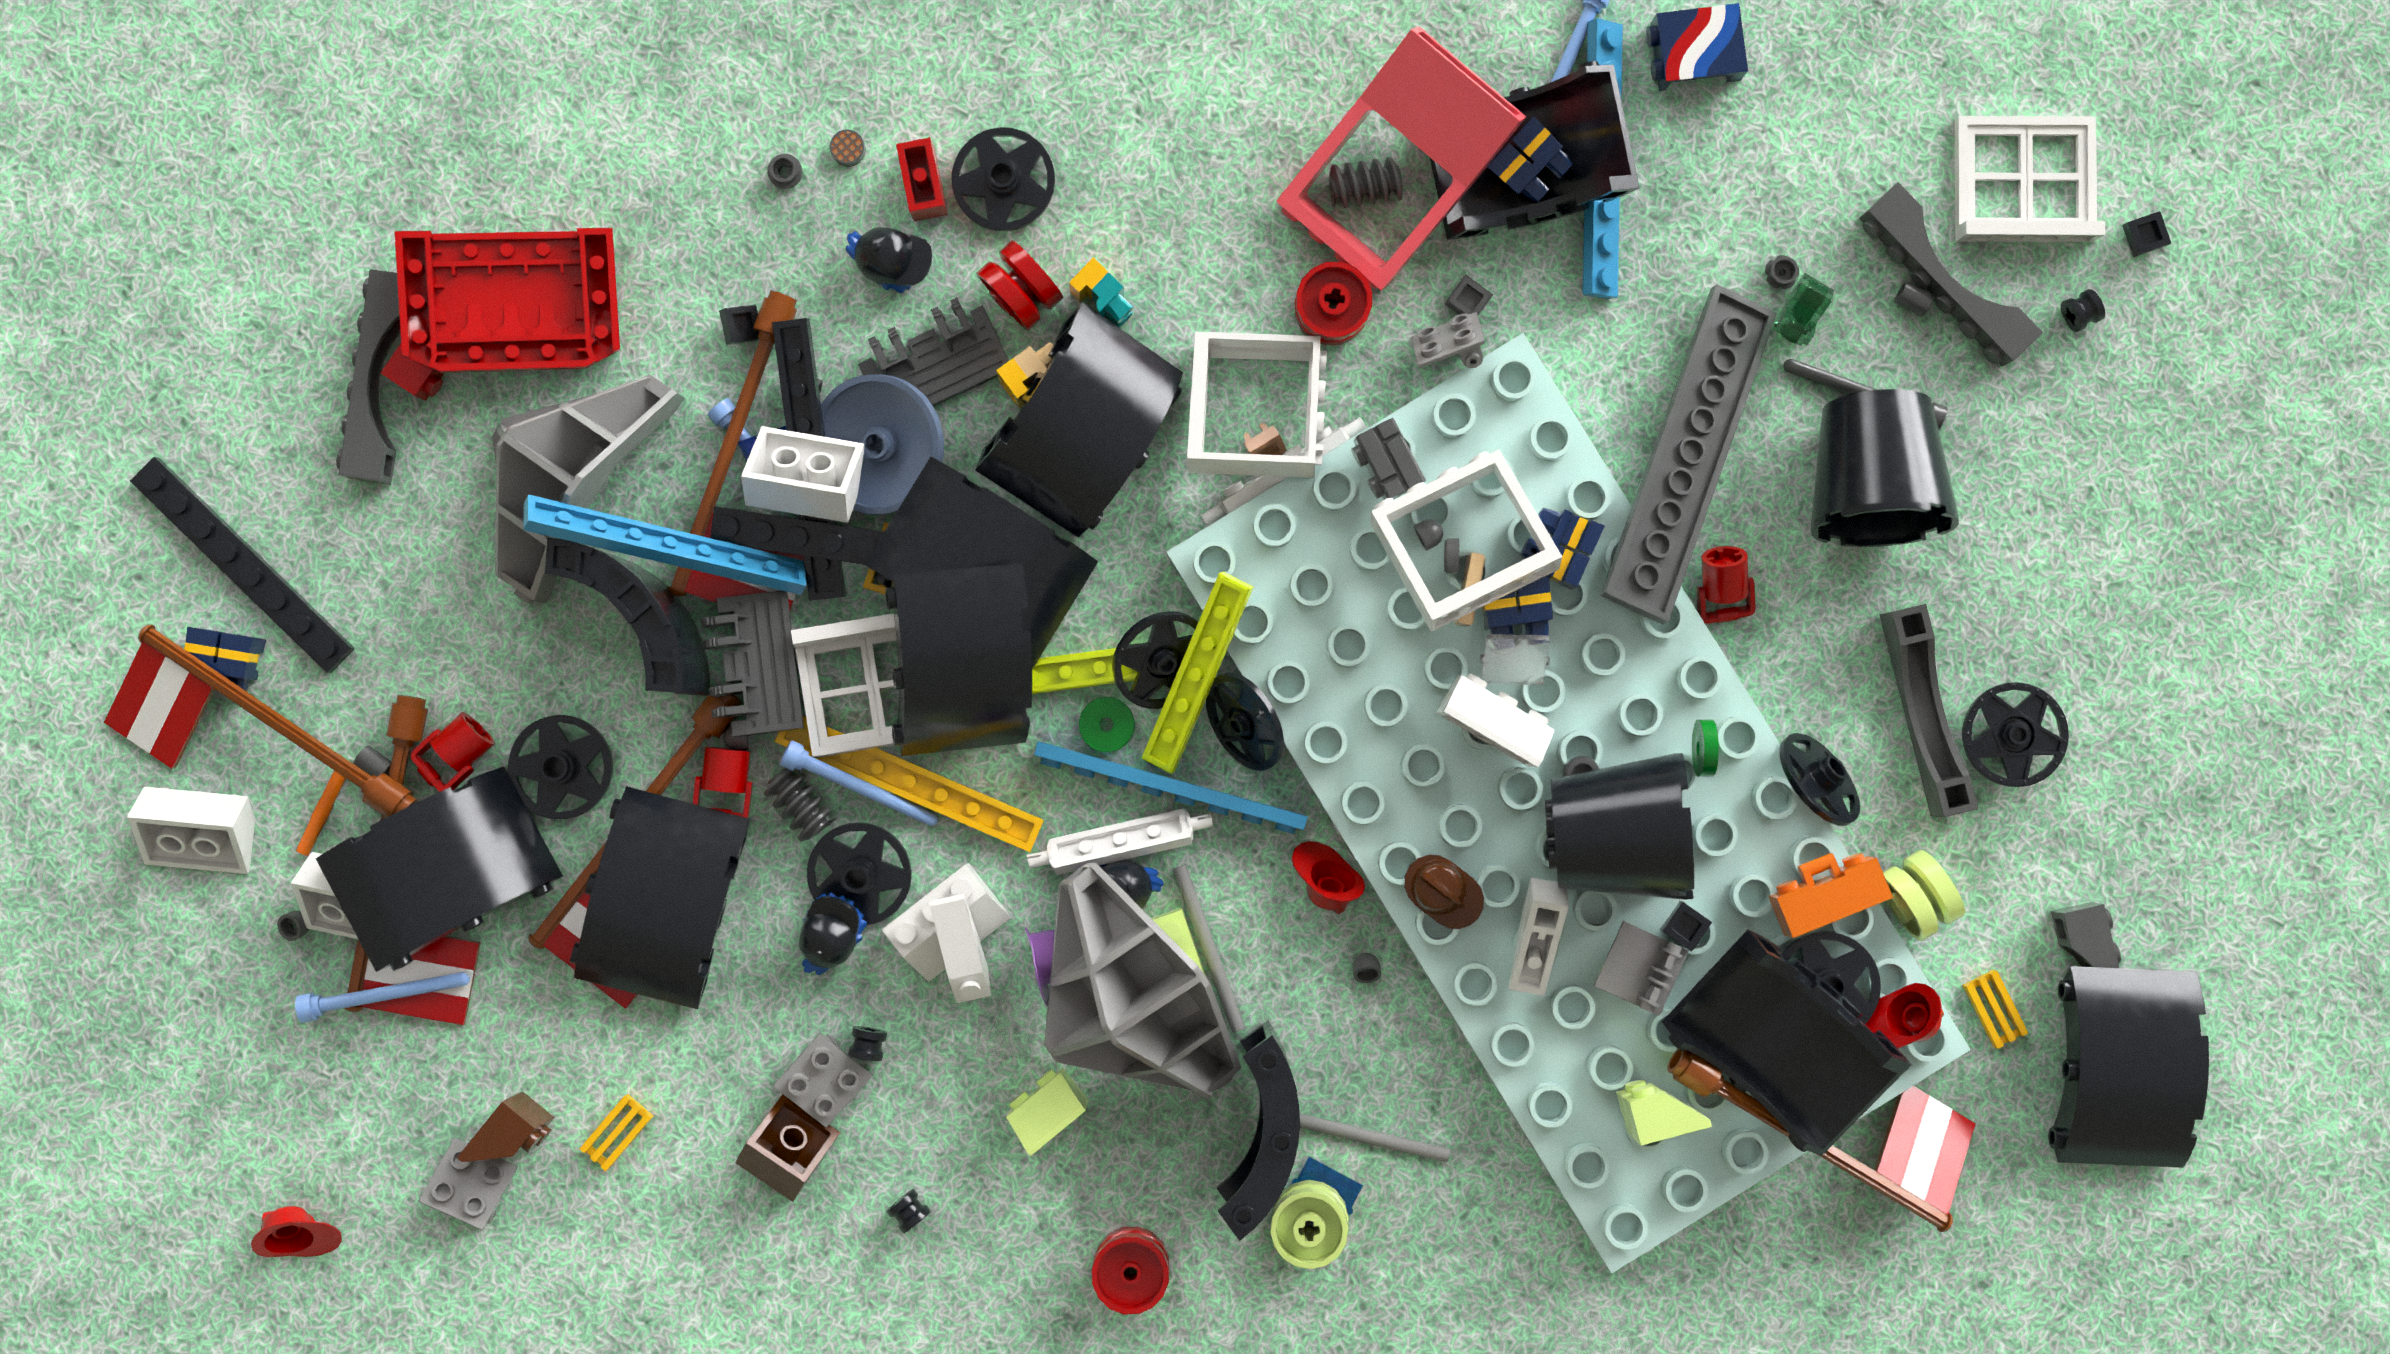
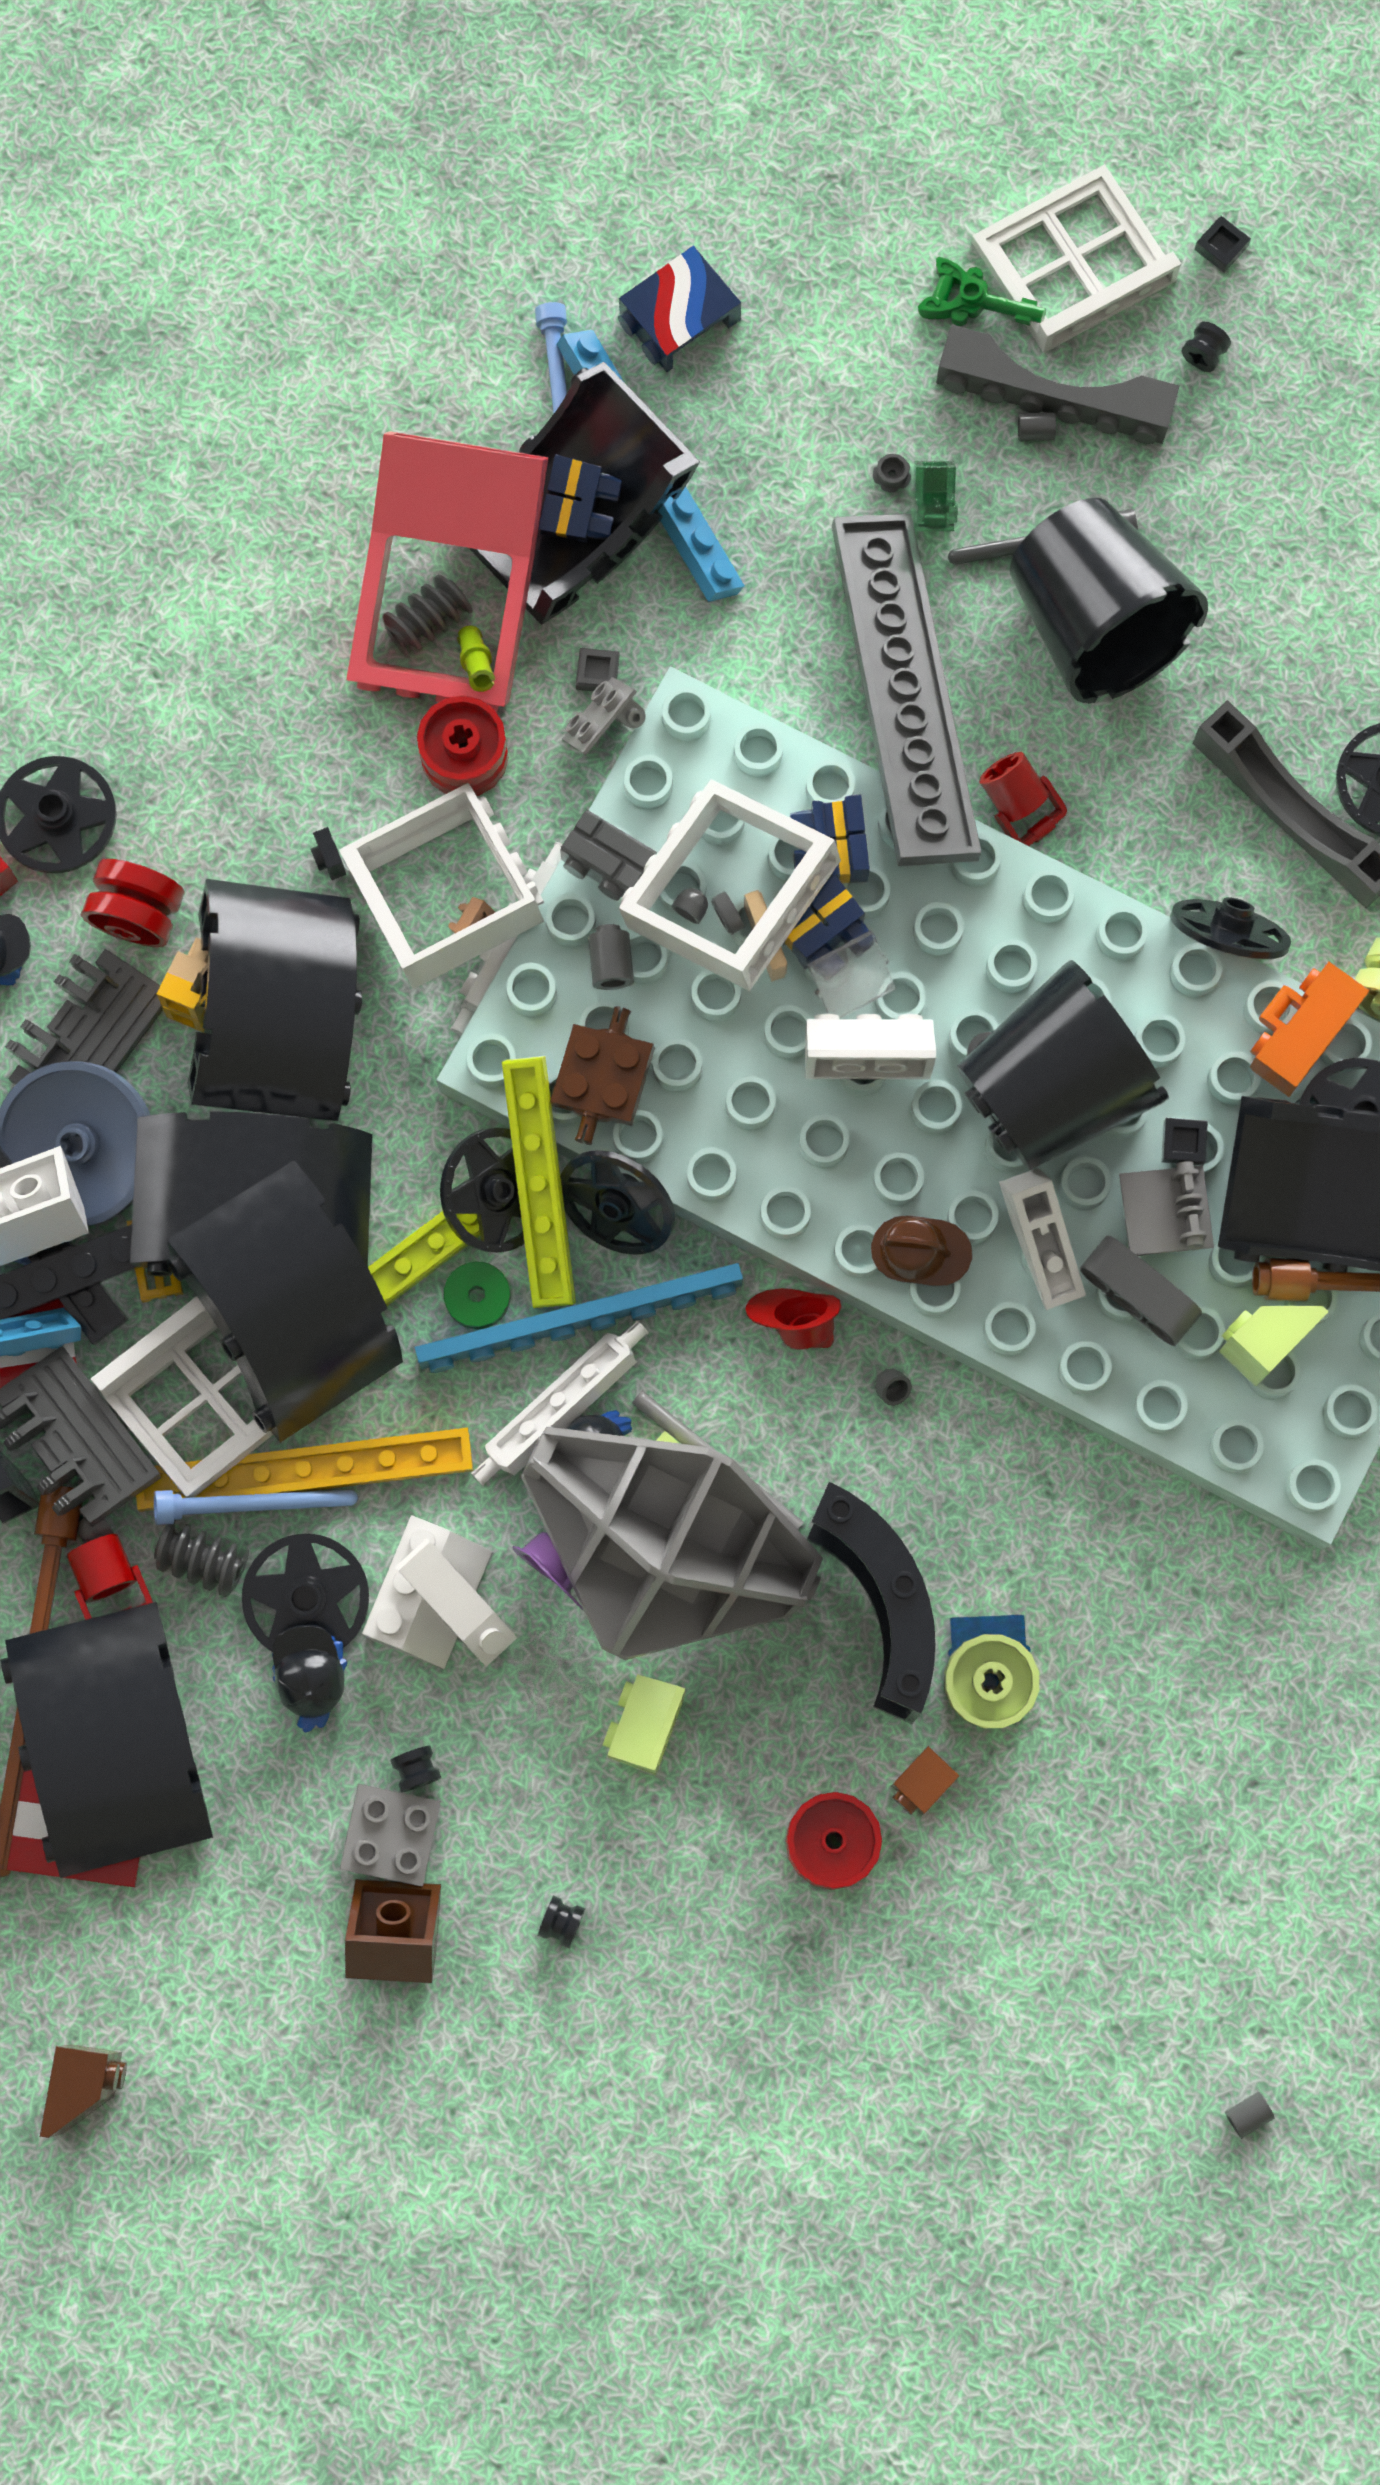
camera: 30 degrees left, 10 degrees down
(468, 1188) = (67, 2176): light grey hinge -> none
(597, 1155) = (181, 2025): yellow tile -> none
(1104, 290) = (219, 859): teal hips -> none
(1185, 328) = (327, 855): none -> black plate
(1219, 1264) = (923, 1782): none -> dark orange brick
(1288, 624) = (602, 1075): none -> reddish brown plate
(1345, 539) = (610, 958): none -> dark grey brick
(1374, 1137) = (1009, 1557): light grey piece -> none
(1382, 240) = (475, 658): none -> lime pin
(1586, 1017) = (1140, 1290): none -> dark grey beam
(1705, 748) = (1093, 953): green piece -> none
(1928, 167) = (972, 298): none -> green piece

